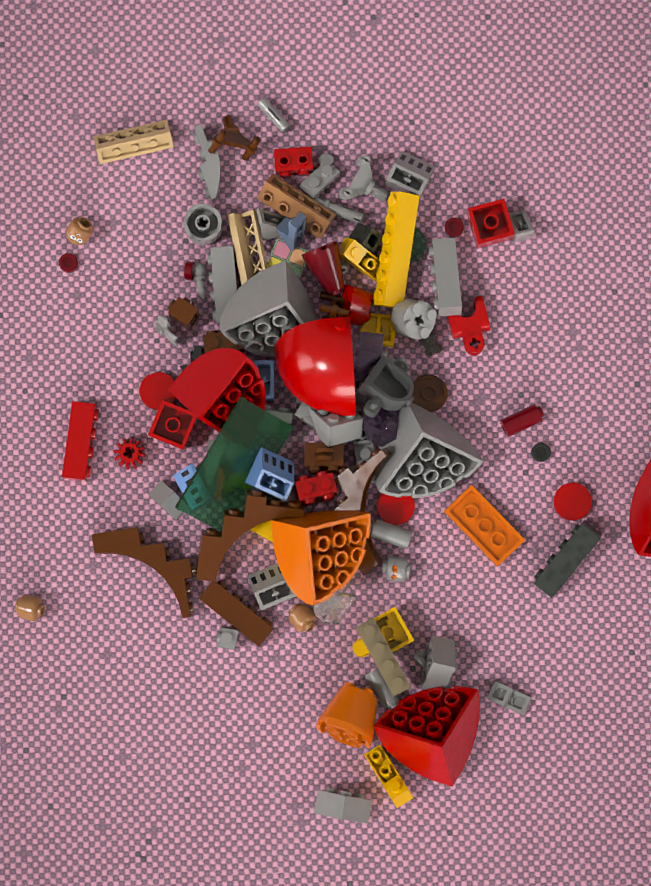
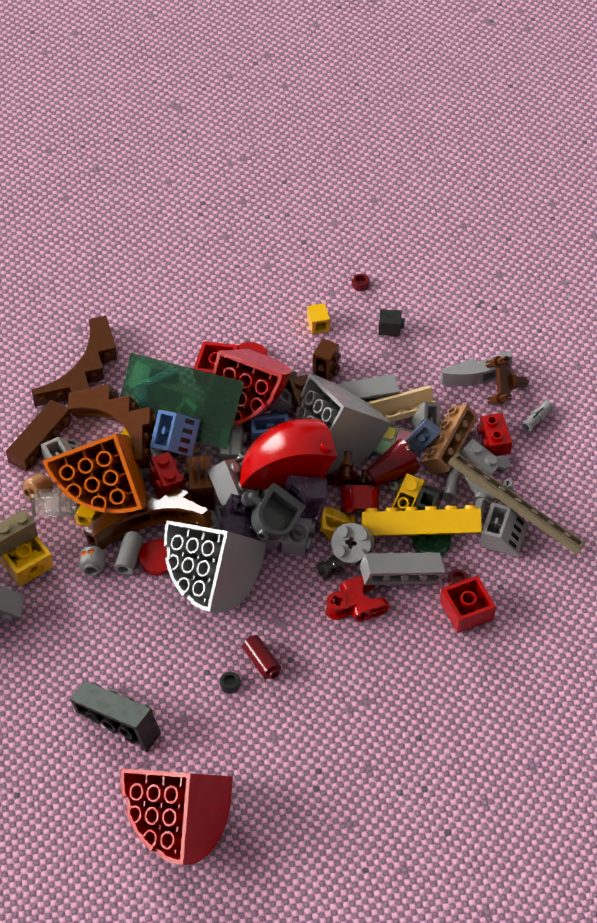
camera: 85 degrees right, 30 degrees down
(29, 607) = (35, 284): medium nougat head -> none
(79, 231) = (390, 281): medium nougat head -> none
(79, 441) = (193, 303): red brick -> none
(117, 314) = (318, 318): none -> yellow brick
(123, 451) = (186, 340): red gear -> none
(133, 144) = (484, 314): tan fence -> none
(136, 240) = (390, 322): none -> pearl dark grey brick
(163, 327) = (307, 351): light grey plate -> none
(188, 270) = (369, 366): dark red tile -> none
(198, 274) = (370, 372): light grey bar -> none
(208, 215) = (415, 368): light grey brick -> none
(227, 638) = (13, 425): light grey brick -> none
(388, 157) = (516, 503): none -> dark tan tile
(429, 392) = (279, 574): reddish brown tile -> none
(484, 525) = (144, 635): orange plate -> none
(522, 226) = (470, 635): light grey slope -> none
(572, 501) = (179, 717): red tile -> none

